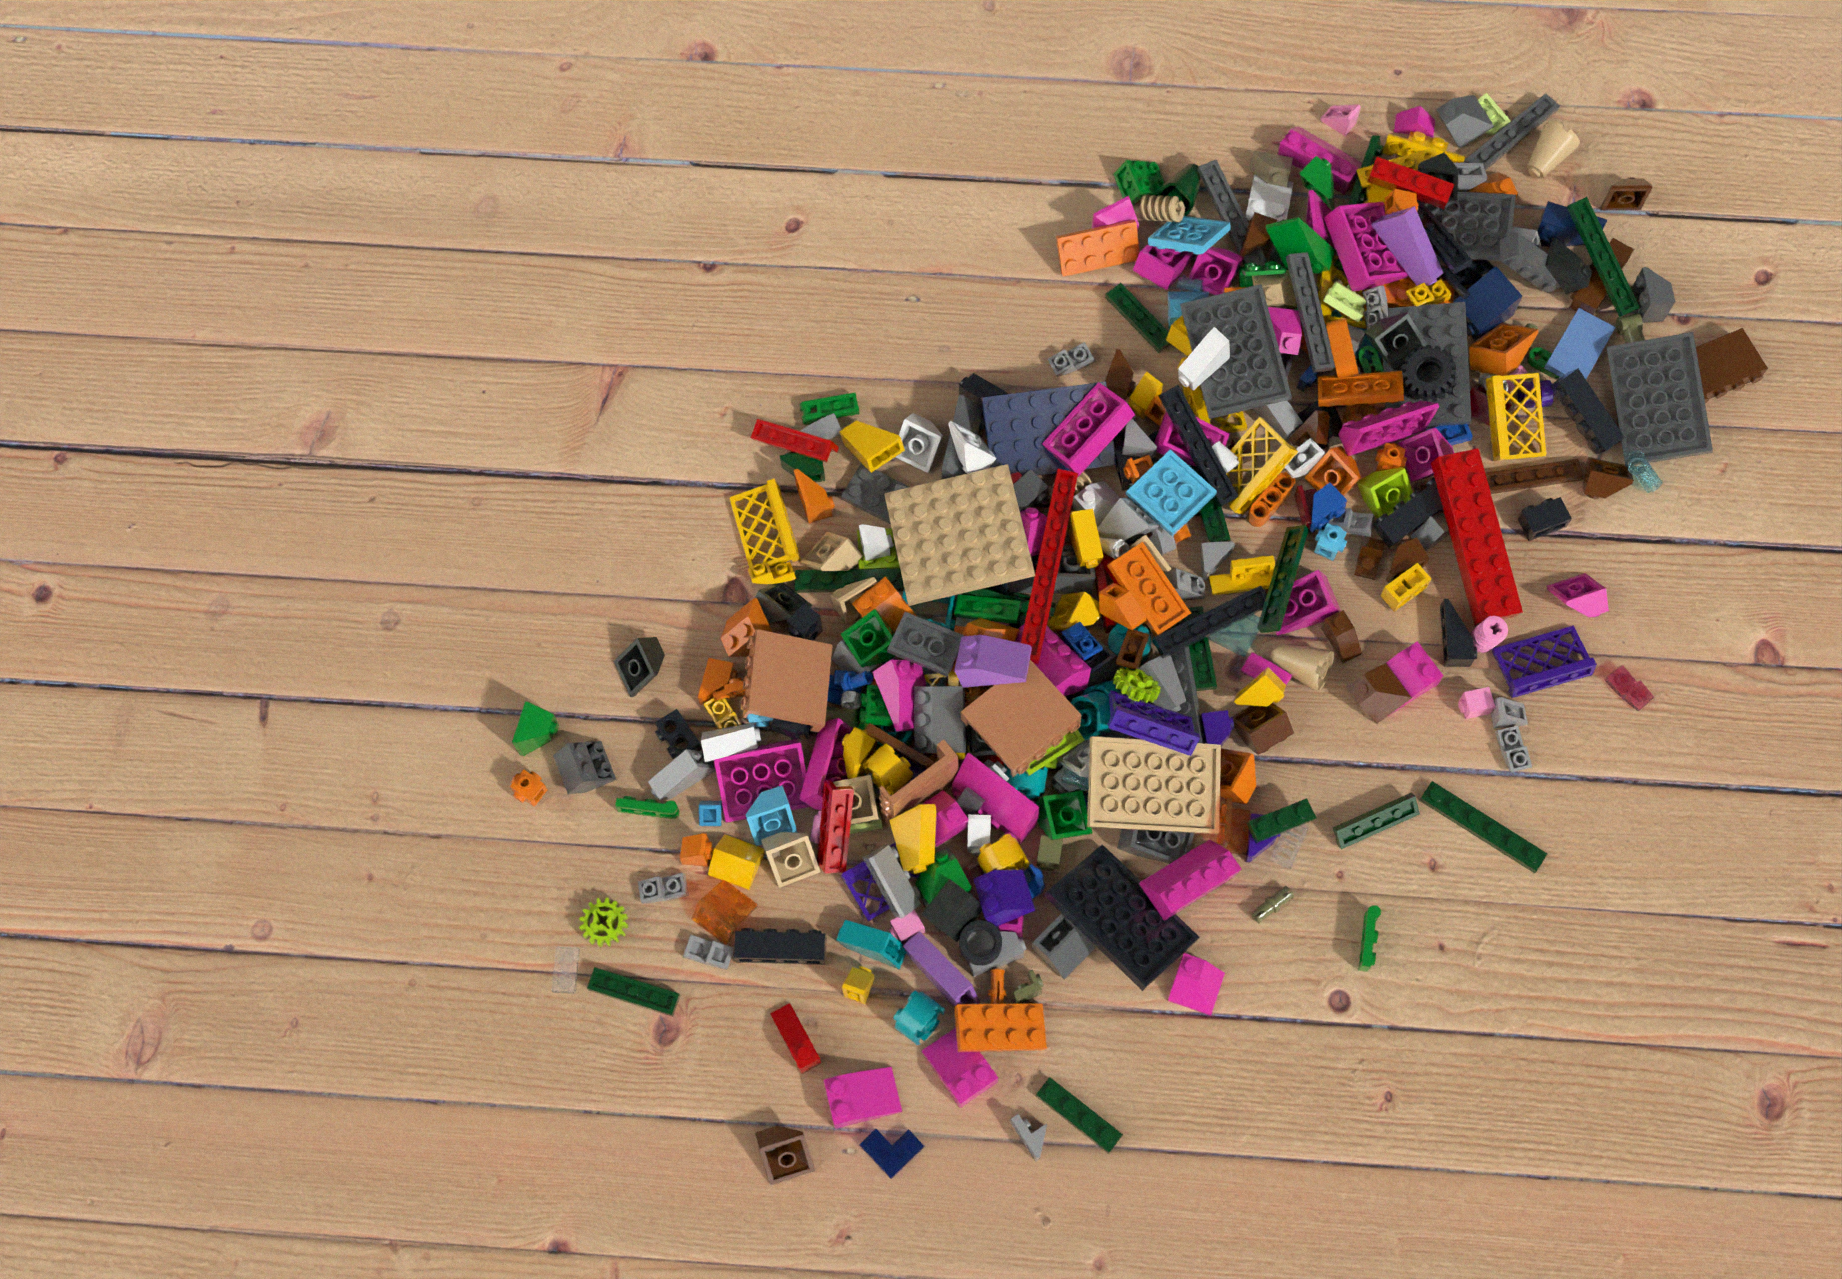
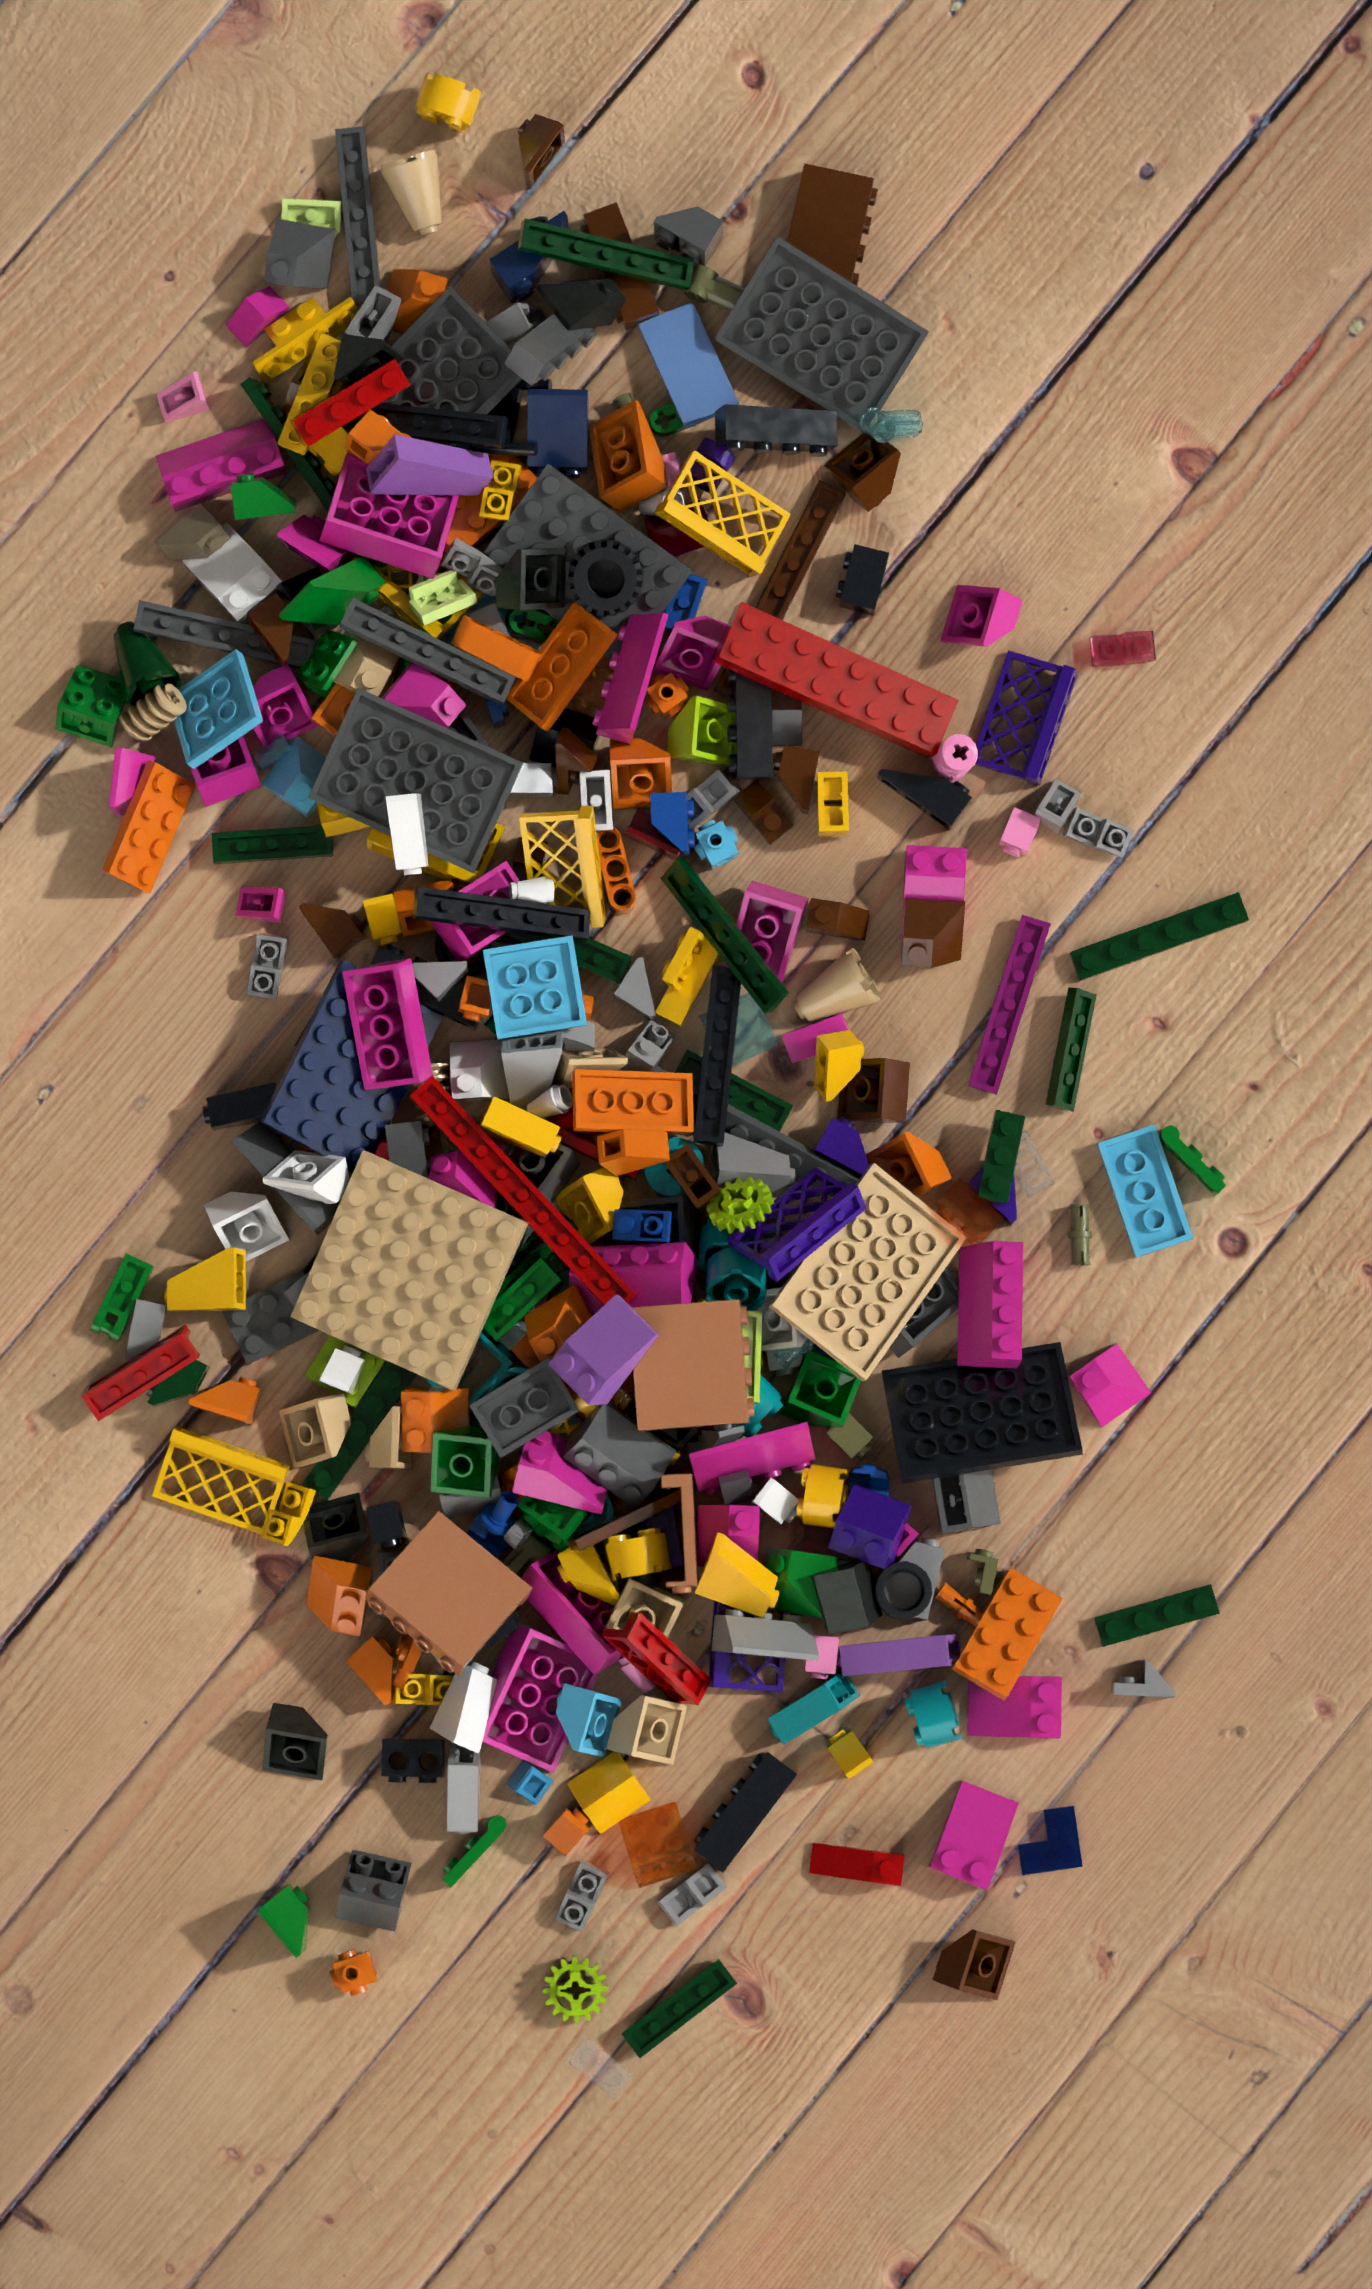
camera: 55 degrees left, 15 degrees up
(1104, 335) = (261, 904): none -> dark pink slope
(1328, 924) = (1145, 1191): none -> medium azure plate
(1373, 767) = (1009, 1004): none -> magenta plate
(1609, 133) = (447, 101): none -> yellow brick

